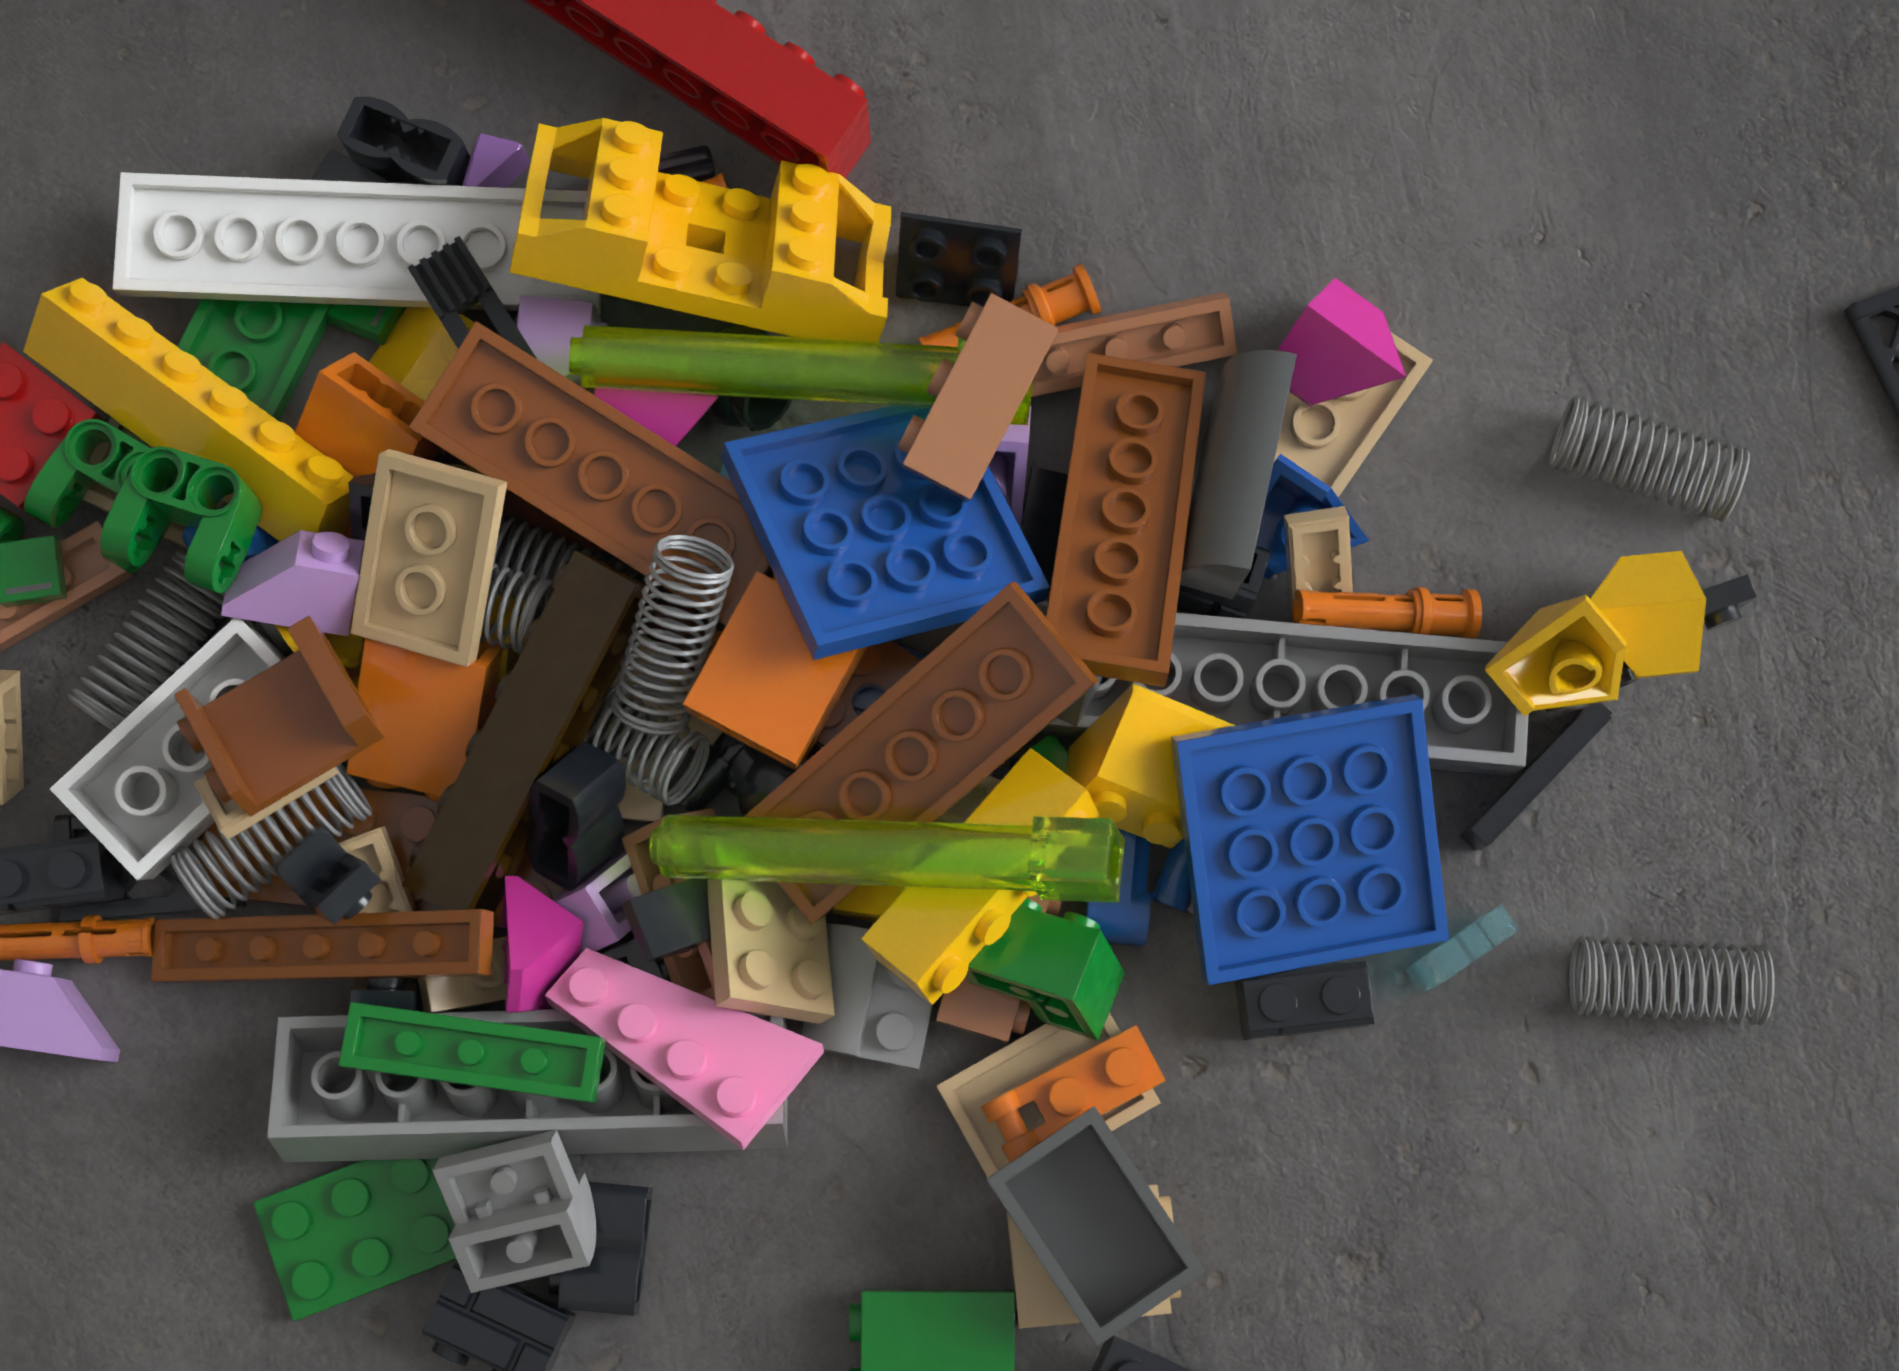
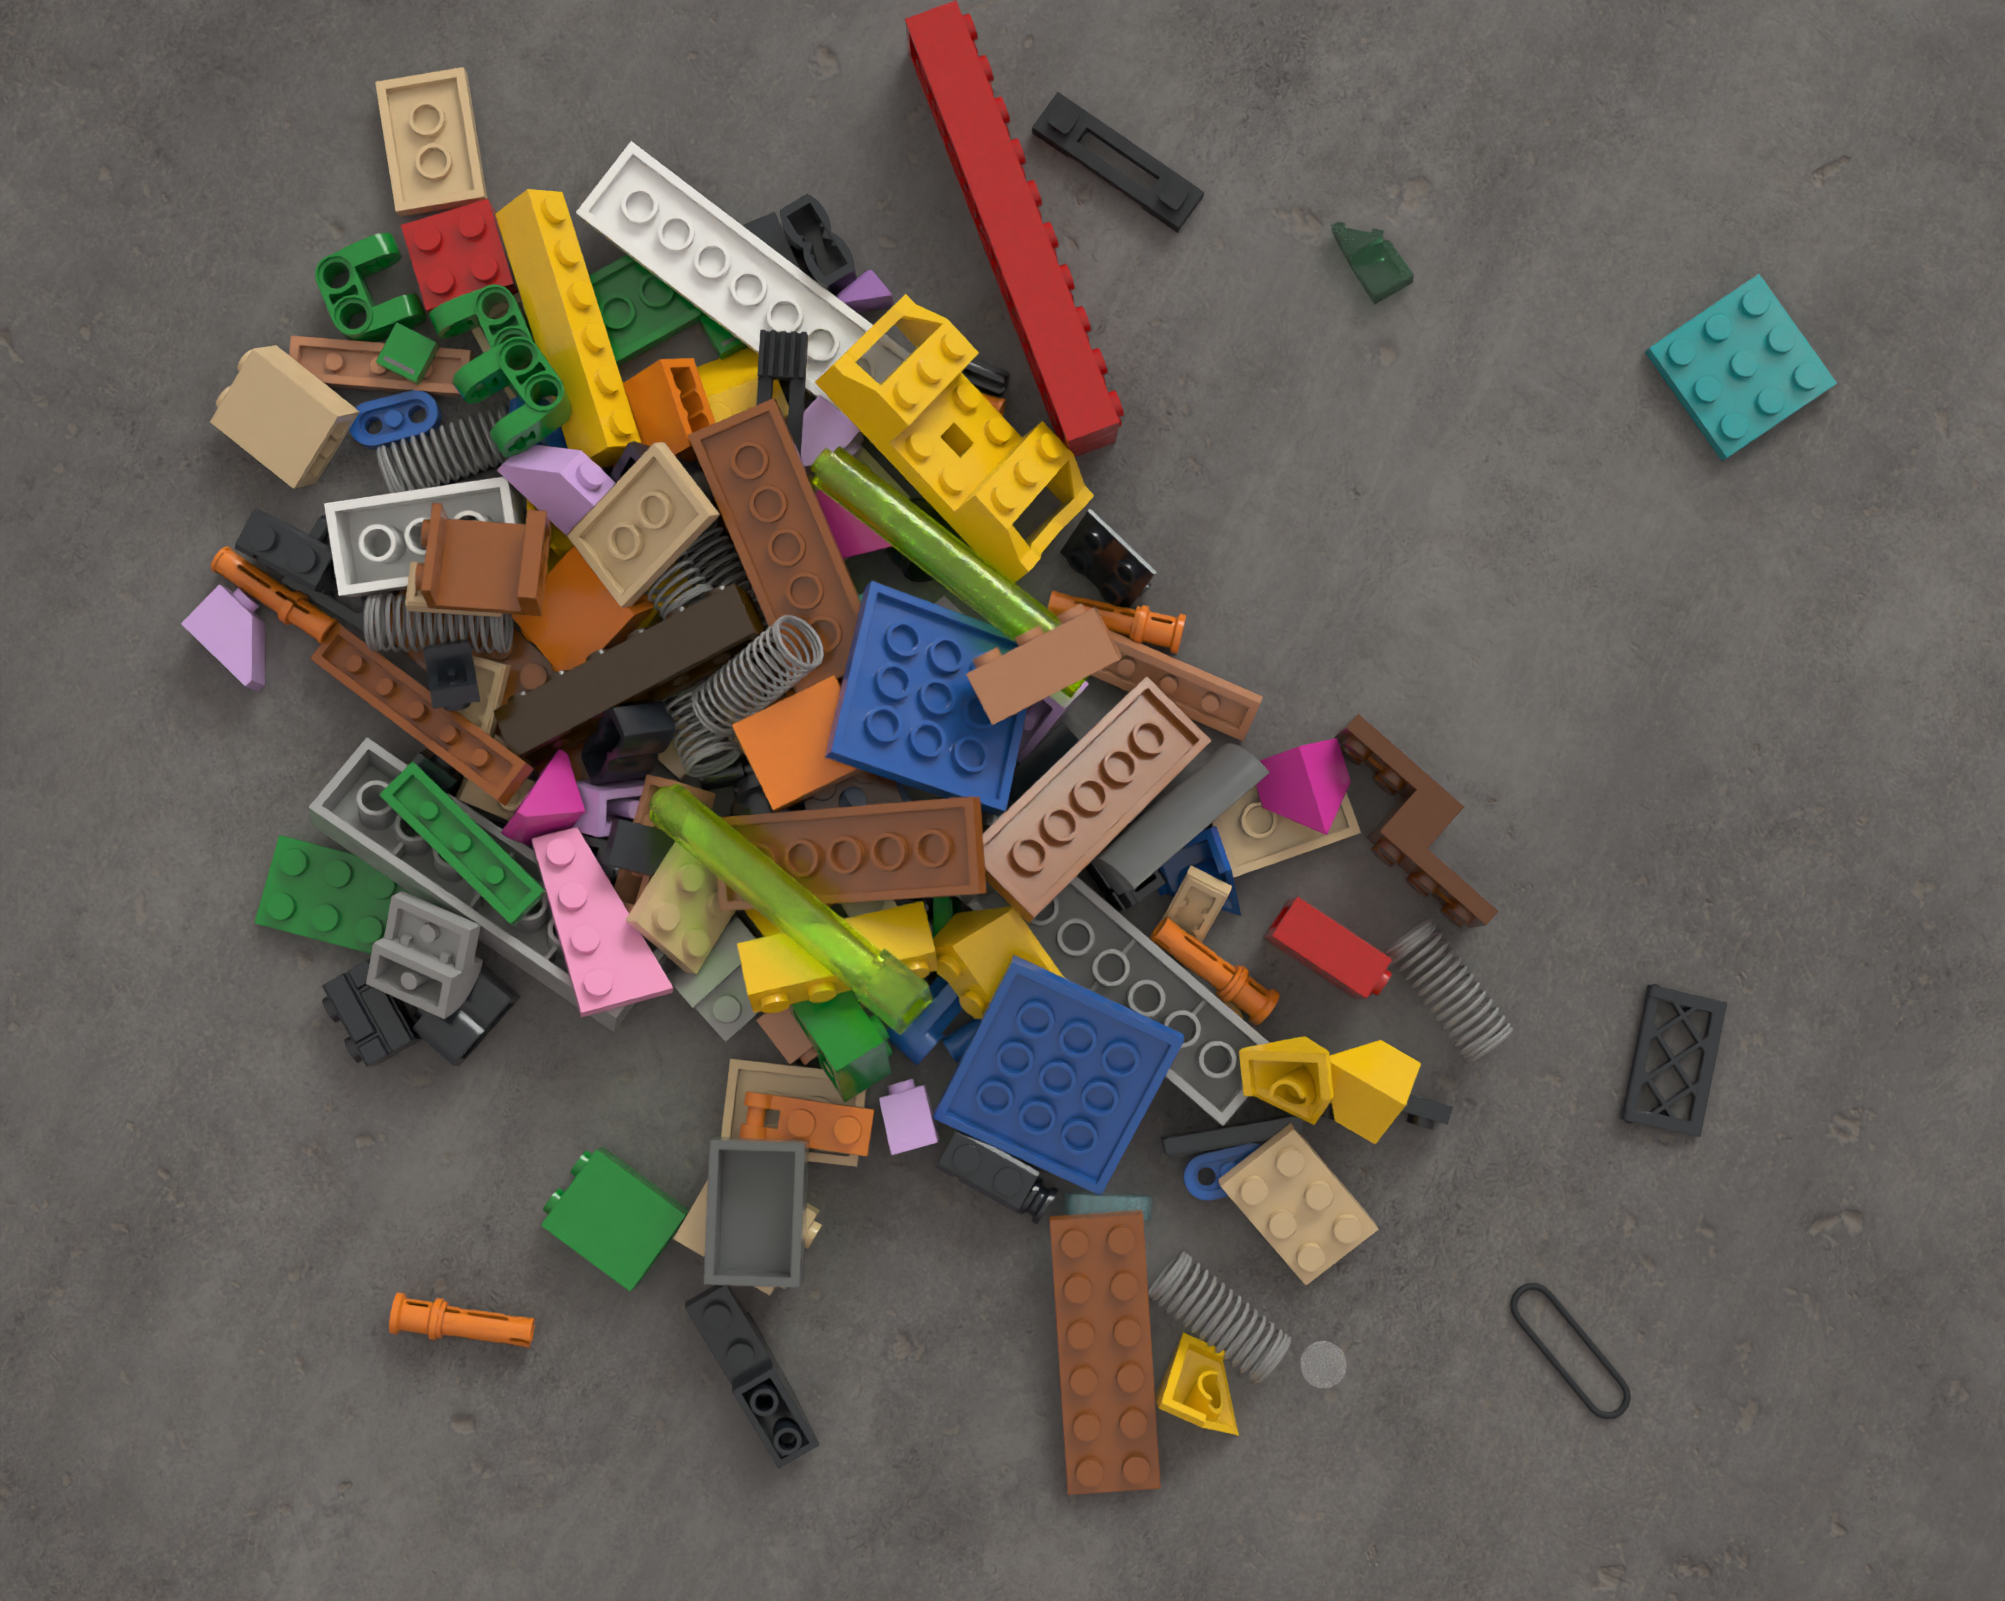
camera: 35 degrees right, 5 degrees up
(62, 650) = (396, 419): none -> blue plate
(1179, 1006) = (908, 1117): none -> lavender slope
(1386, 997) = (1038, 1200): none -> black bush
(1484, 307) = (1413, 823): none -> reddish brown bracket
(1493, 501) = (1329, 949): none -> red brick
(1560, 819) = (1220, 1162): none -> blue plate
(1578, 1109) = (1105, 1352): none -> dark orange plate
(1662, 796) = (1298, 1204): none -> tan plate
(1698, 1074) = (1197, 1387): none -> yellow slope
(1815, 952) = (1323, 1364): none -> clear plate

